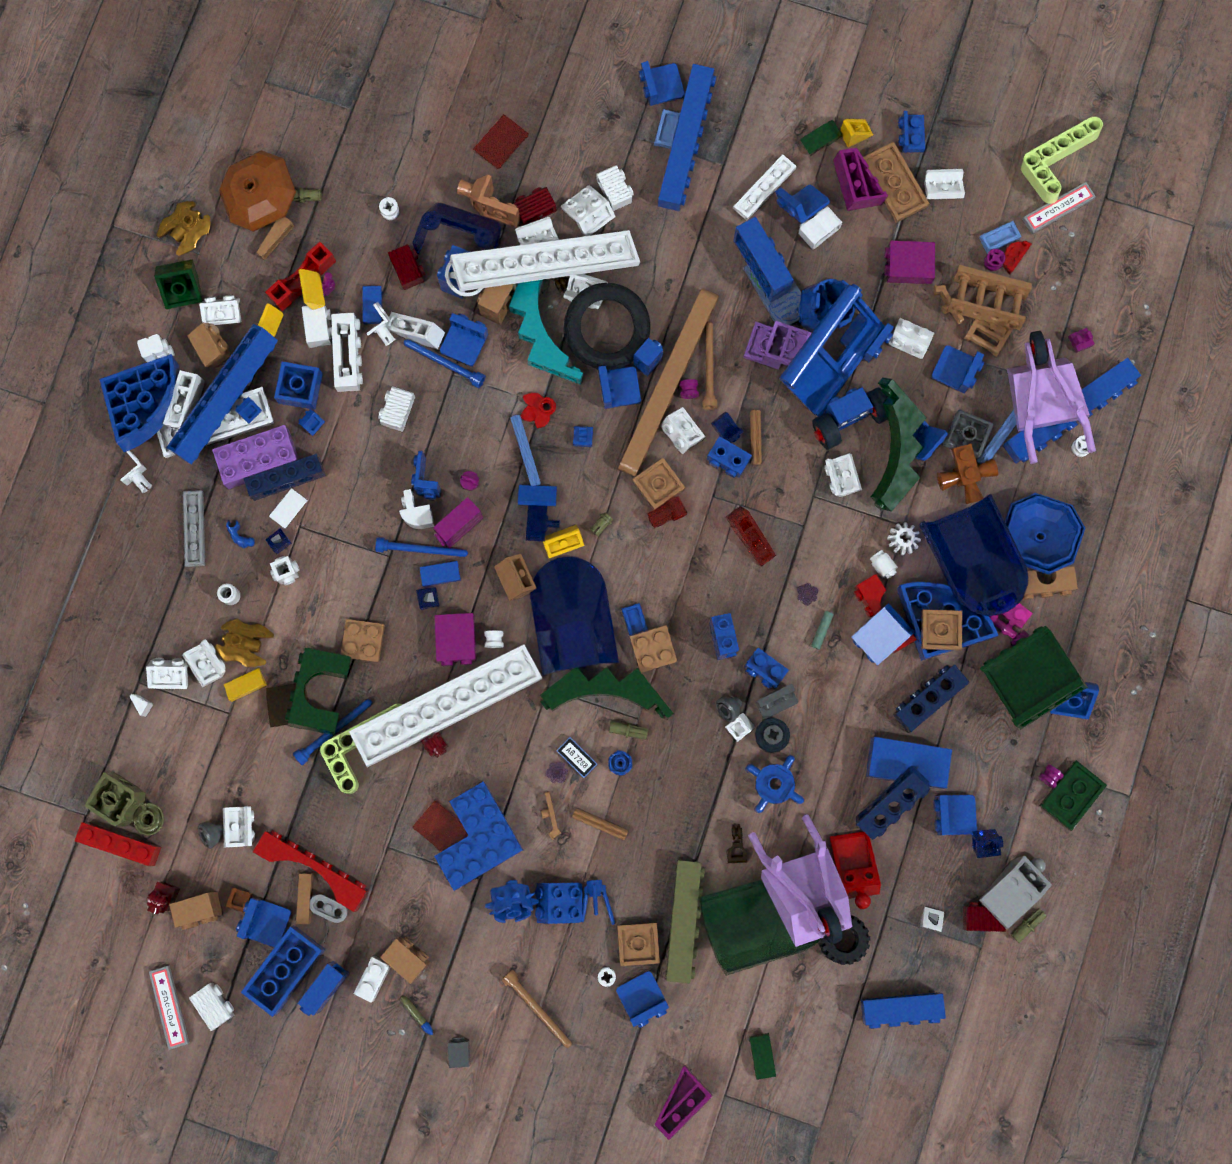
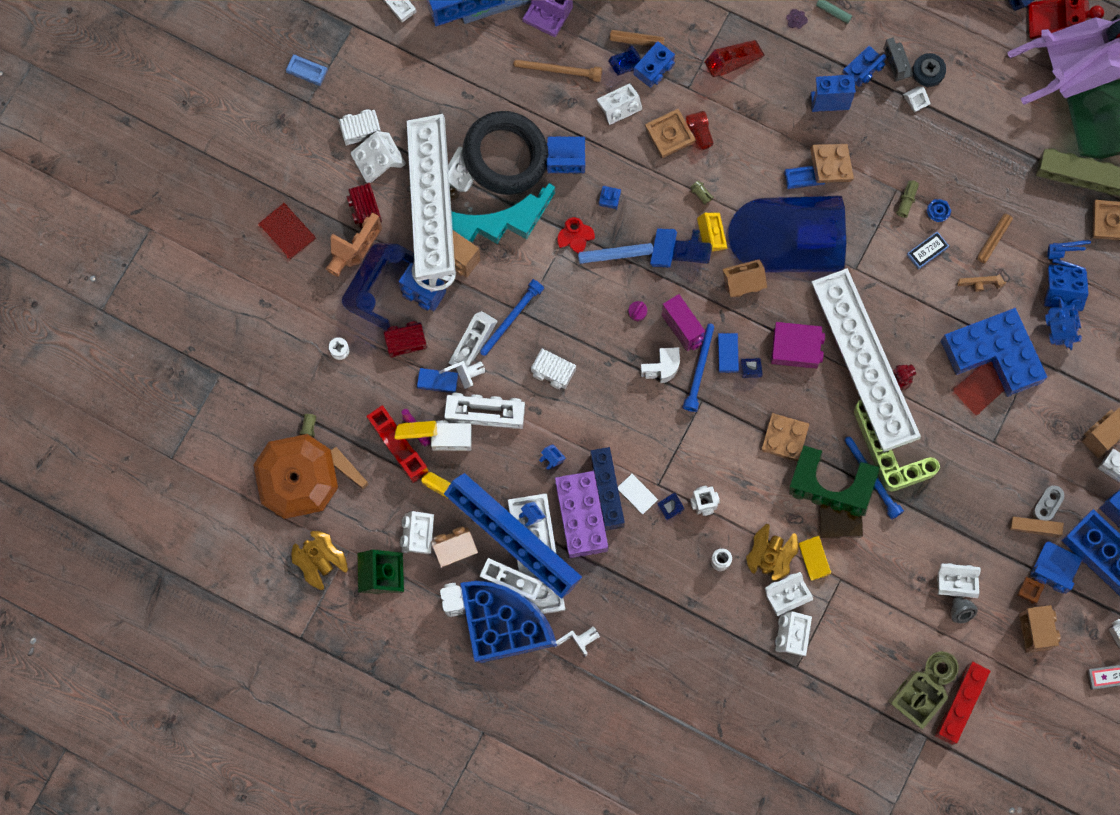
camera: 80 degrees left, 5 degrees down
(142, 705) = (821, 663): white slope -> none
(161, 897) = (1022, 664): dark red brick -> none
(194, 528) = (644, 590): light grey tile -> none
(242, 541) = (666, 542): blue piece -> none
(298, 385) = (513, 461): blue brick -> none
(346, 891) = (986, 546): red arch -> none
(428, 489) = (633, 355): blue bracket -> none
(464, 339) = (492, 294): blue bracket -> none
(493, 639) = (802, 309): white wheel -> none
(536, 232) = (397, 208): white bracket -> none
(559, 766) = (943, 267): clear purple plant -> none
(632, 688) = (867, 187): dark green arch -> none
(648, 356) = (544, 118): blue brick -> none
(661, 83) = (258, 66): blue bracket -> none
(668, 382) = (569, 107): medium nougat beam -> none
(686, 137) = (326, 53): blue brick -> none
(689, 389) = (579, 90): magenta wheel -> none
(729, 708) = (899, 103): dark grey brick -> none
(737, 831) = (1018, 117): dark brown piece -> none
(763, 787) = (977, 82): blue plate -> none

